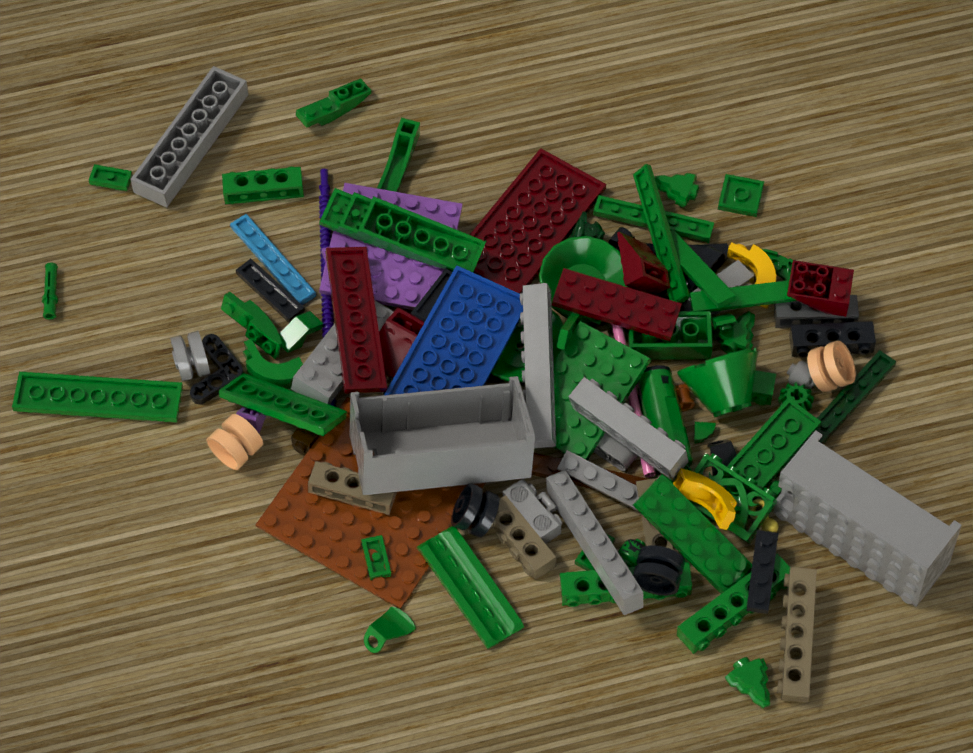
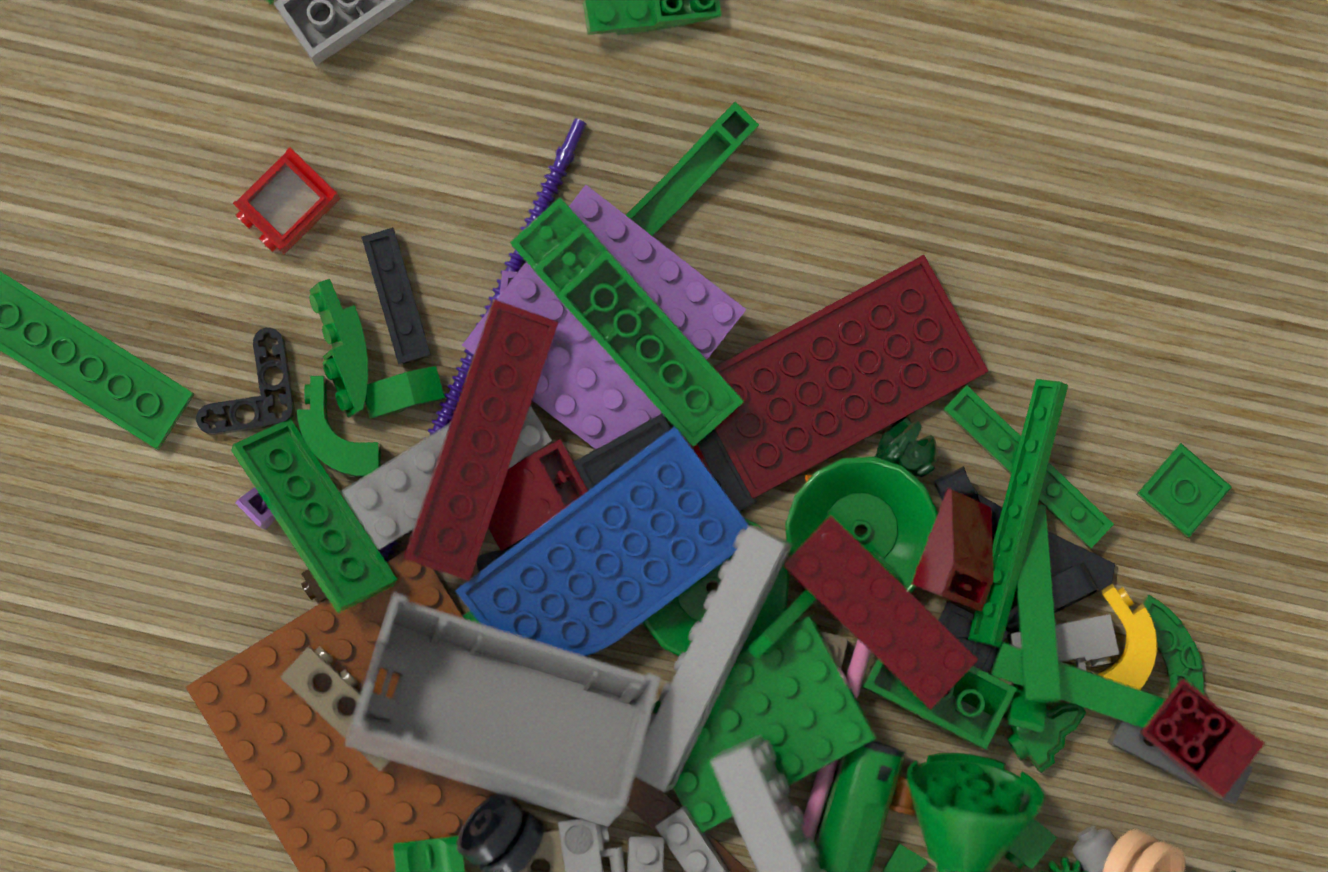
camera: 25 degrees right, 25 degrees up
(50, 298) = (71, 140): green pin -> none
(185, 272) = (285, 202): none -> window
(188, 356) = (220, 360): light grey wheel -> none
(234, 442) = (226, 536): light nougat wheel -> none
(262, 185) = (517, 130): green brick -> none
(273, 259) = (428, 241): dark azure tile -> none
(376, 567) = (323, 840): green plate -> none
(678, 187) = (1095, 430): green rock -> none
(821, 334) = (1228, 830): black brick -> none

